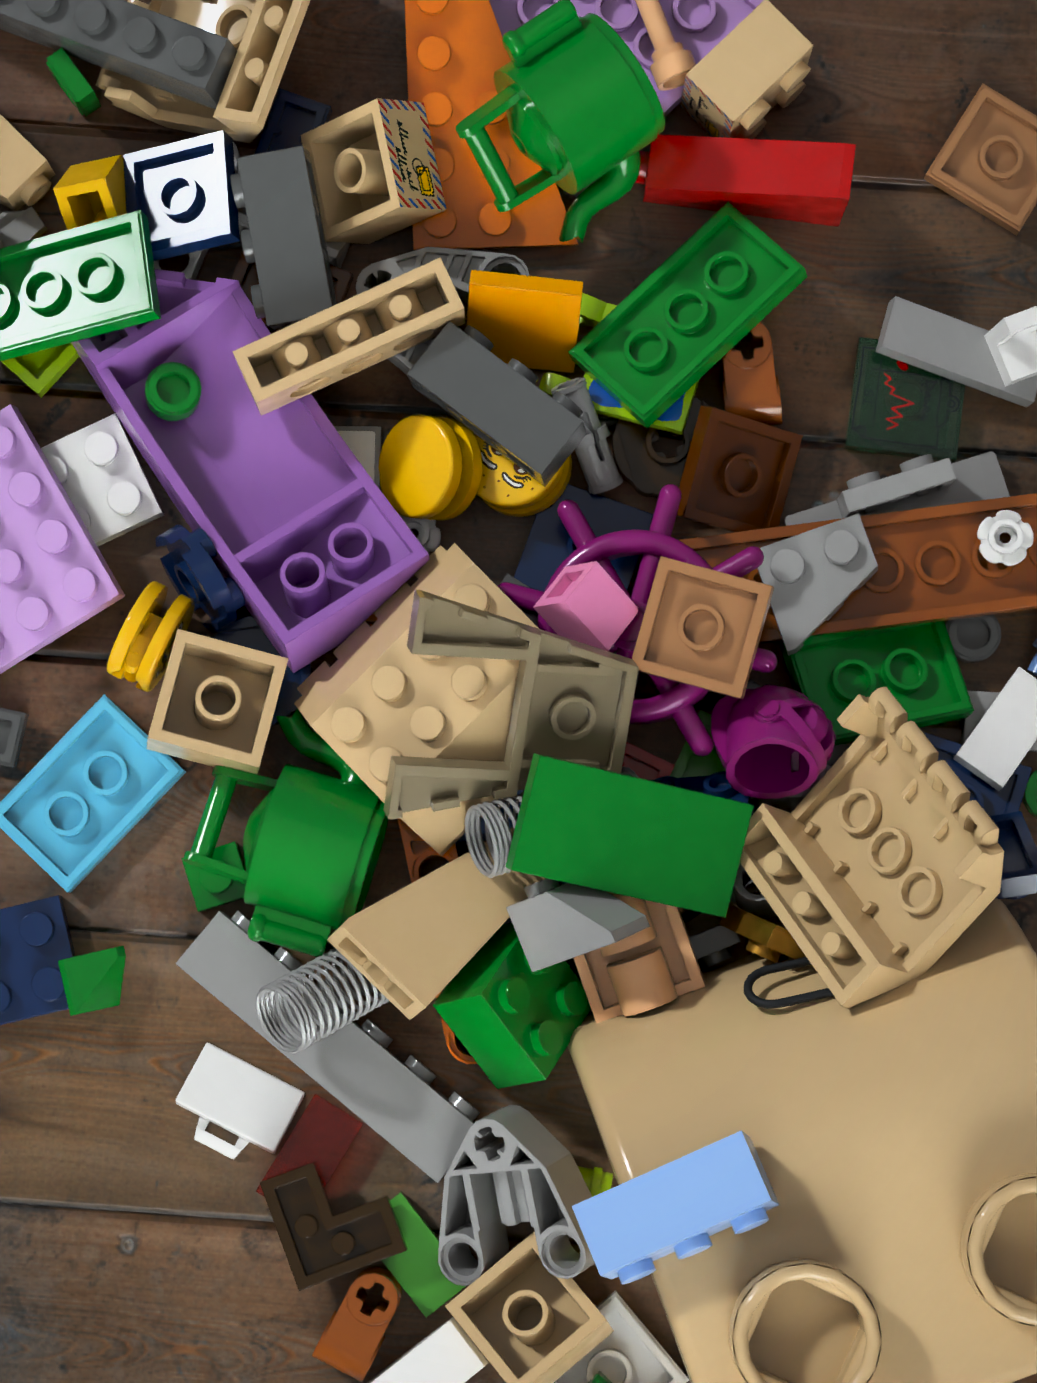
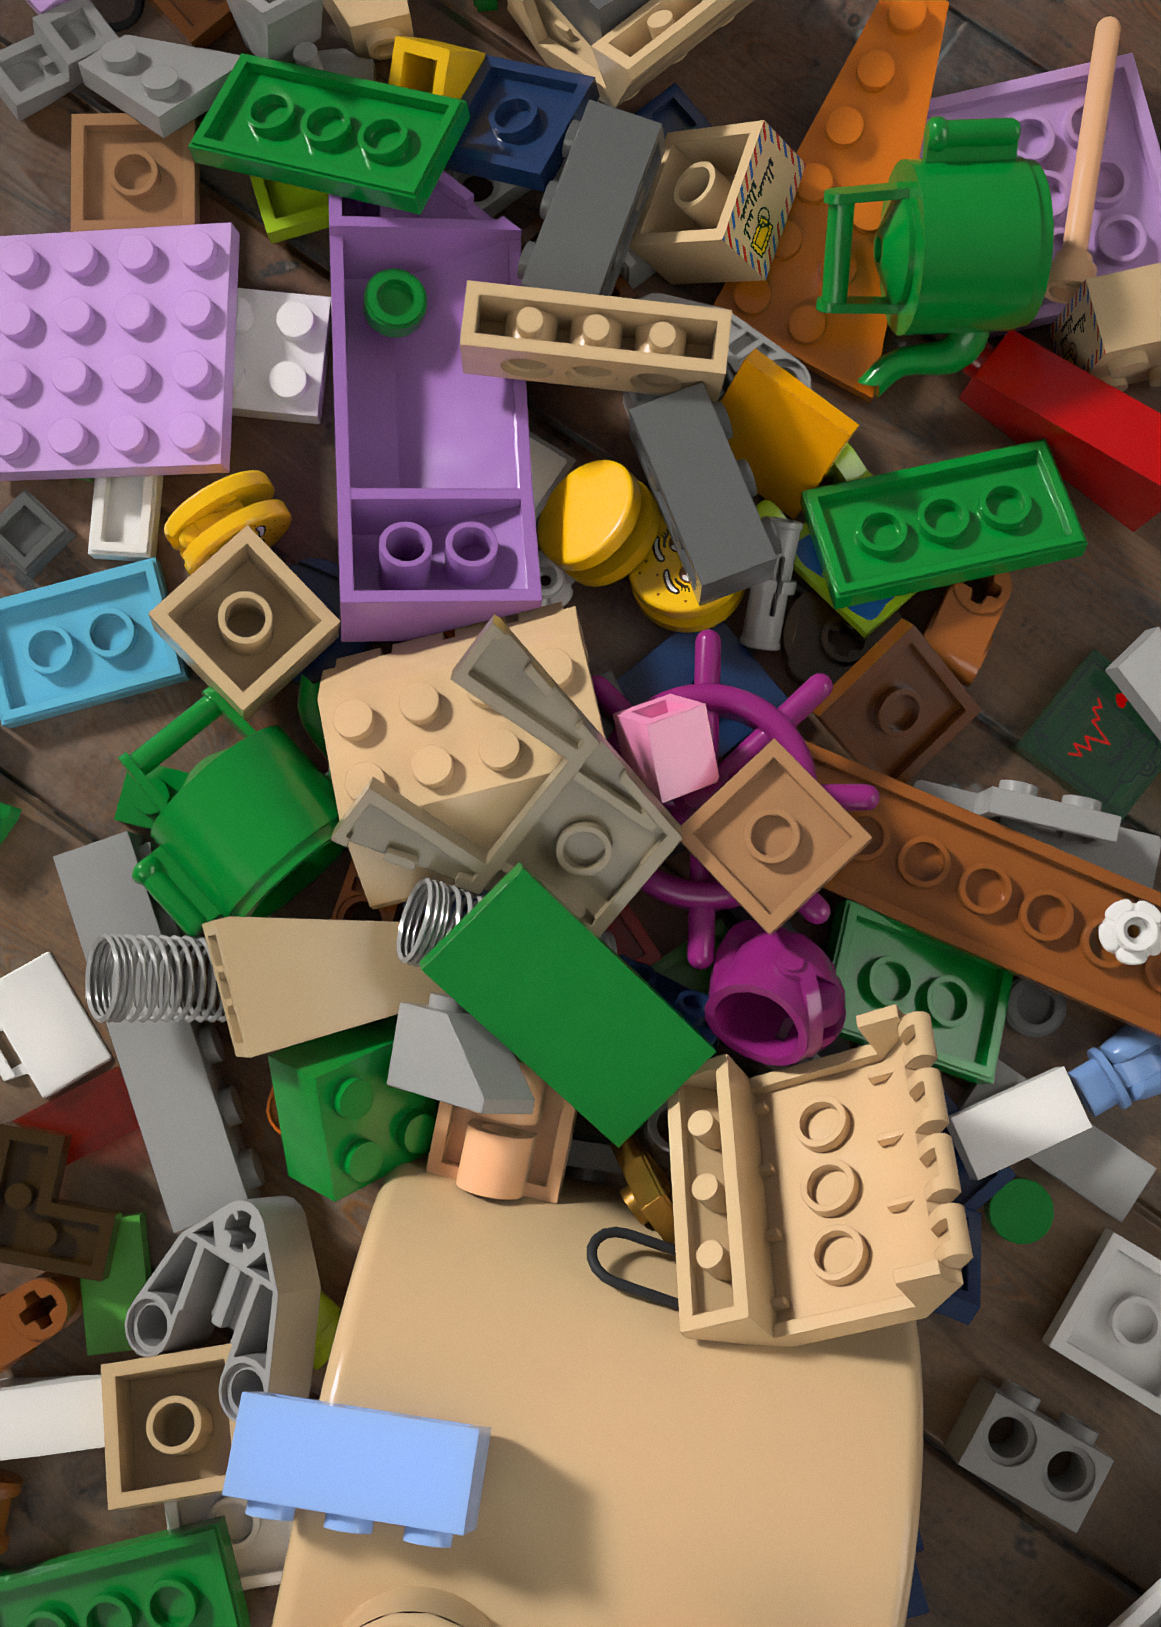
camera: 25 degrees right, 0 degrees up
(61, 678) = (125, 518): none -> white tile
(197, 576) = (307, 493): dark blue plate -> none
(815, 576) = (917, 855): light grey wing -> none

